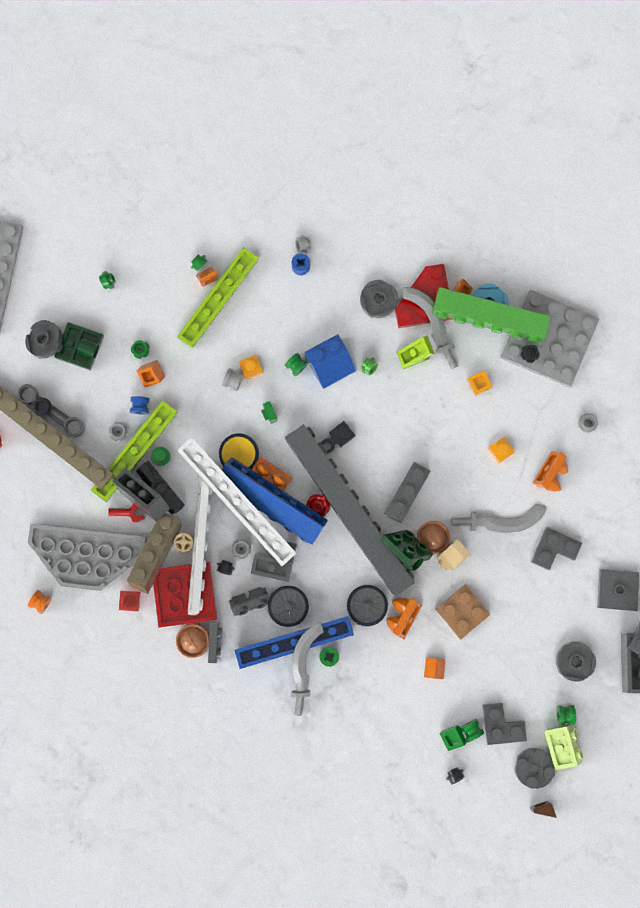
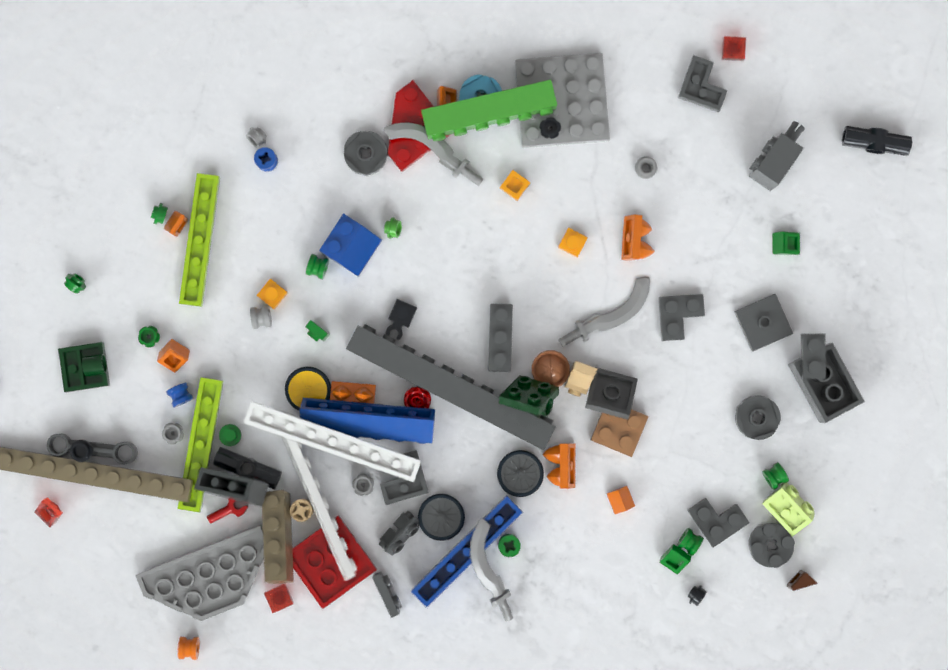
camera: 25 degrees left, 5 degrees up
(50, 346) = (54, 379): dark grey plate -> none
(192, 641) = (364, 603): nougat hat -> none
(225, 567) = (357, 512): black plate -> none
(415, 352) = (433, 189): lime slope -> none
(471, 581) = (611, 393): none -> dark grey plate

